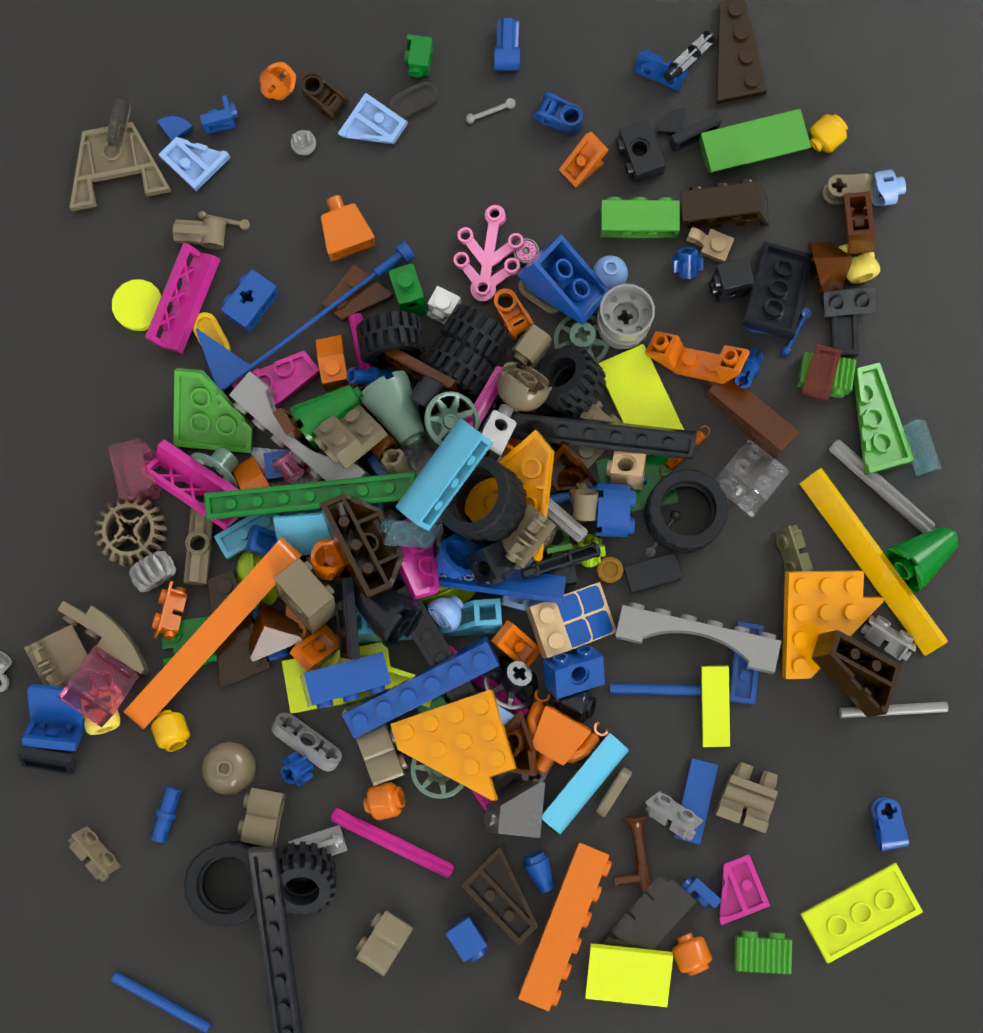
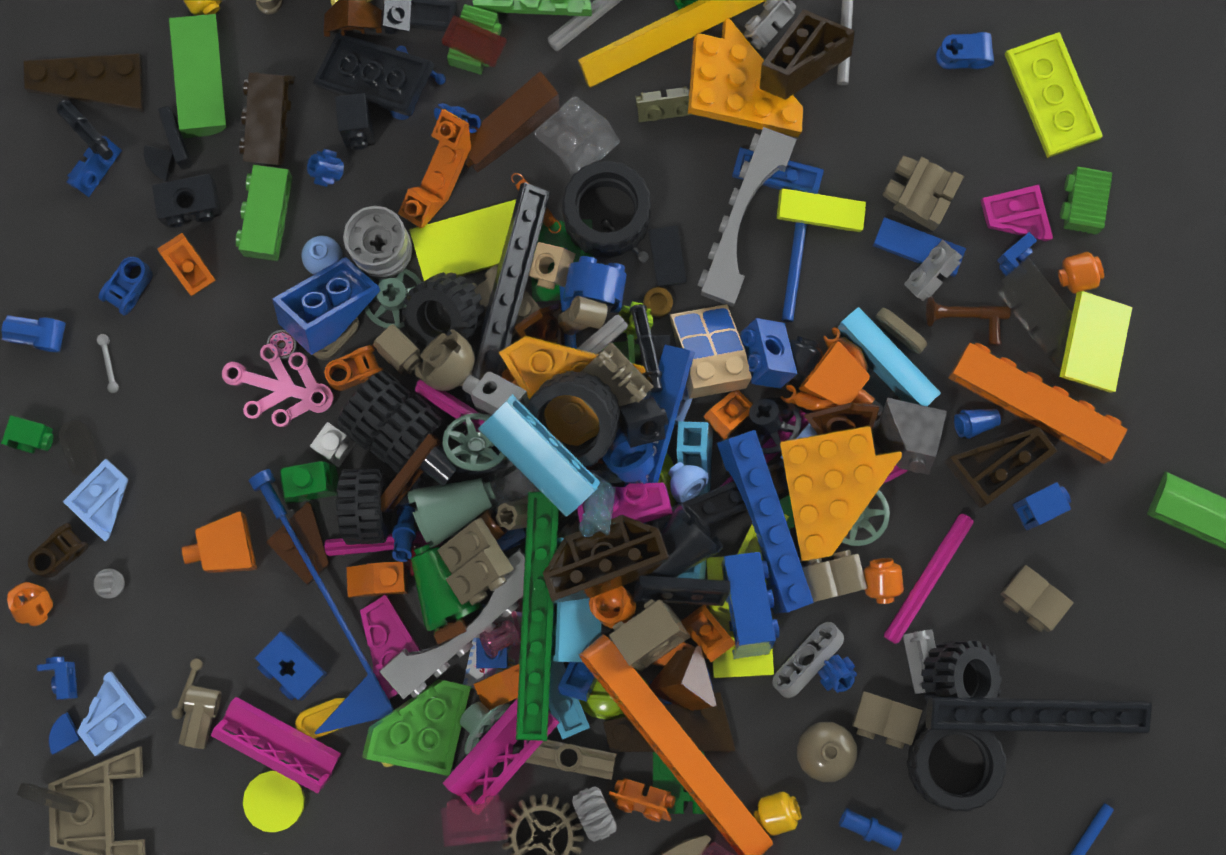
camera: 90 degrees left, 0 degrees up
(714, 245) = (307, 137): tan plate -> none

